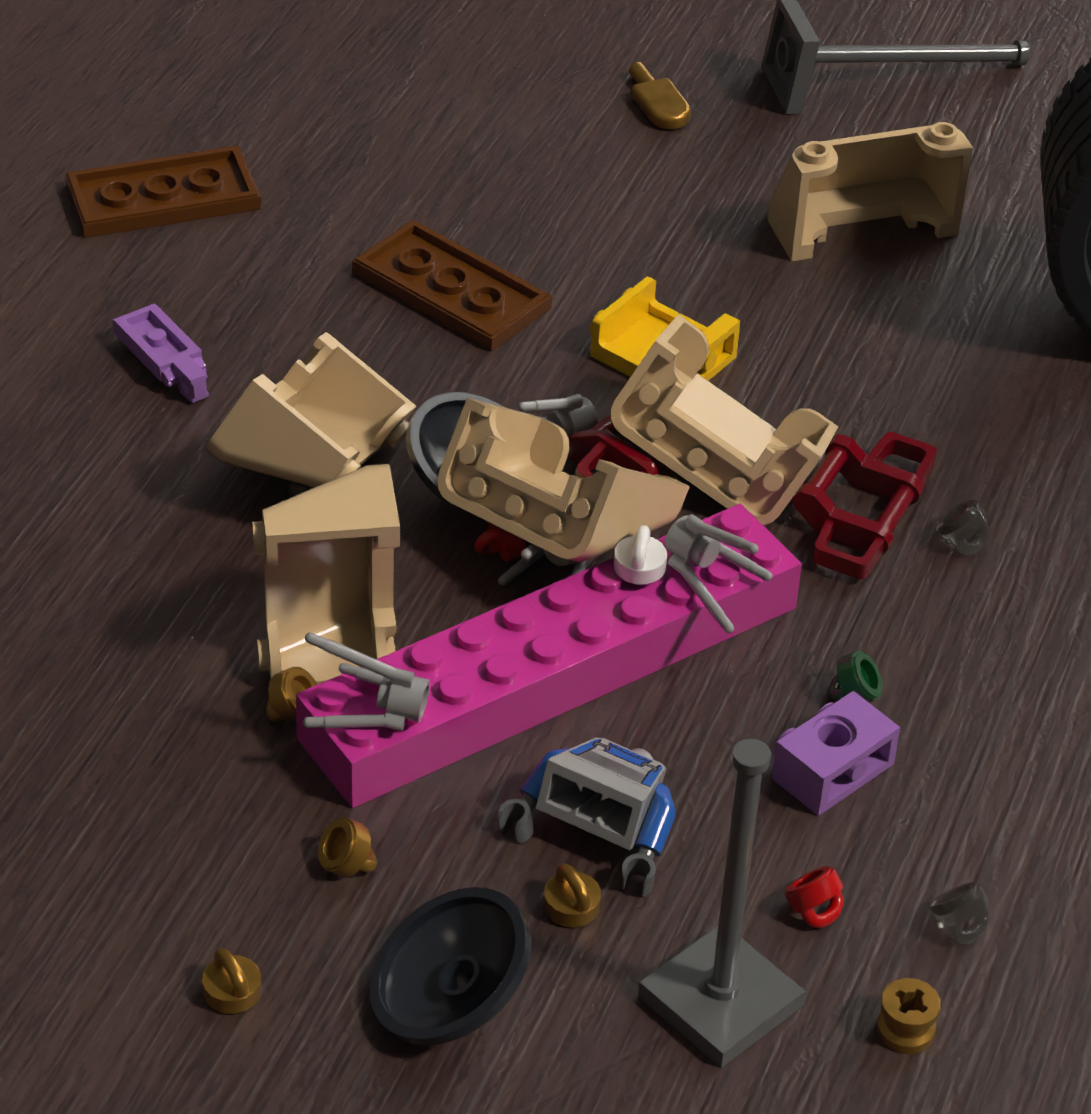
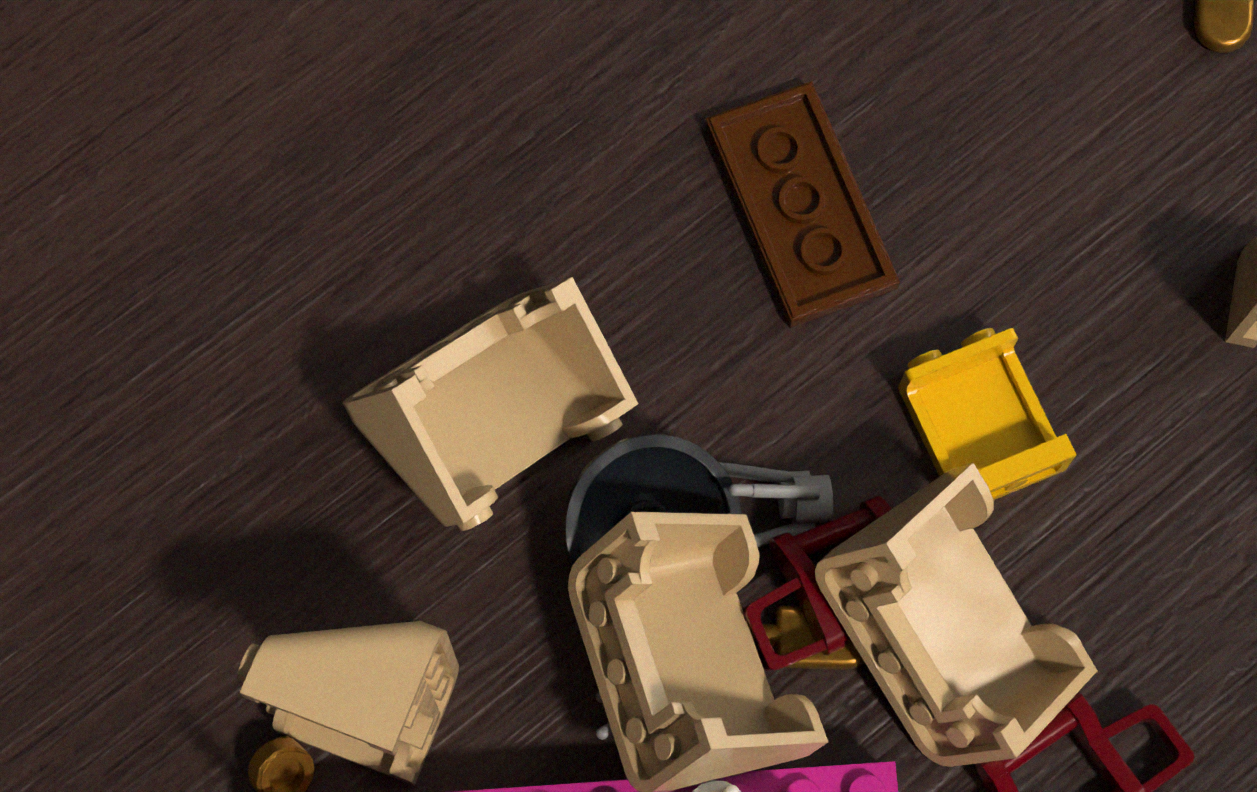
camera: 30 degrees right, 30 degrees up
(164, 350) = (422, 169): medium lavender hinge -> none

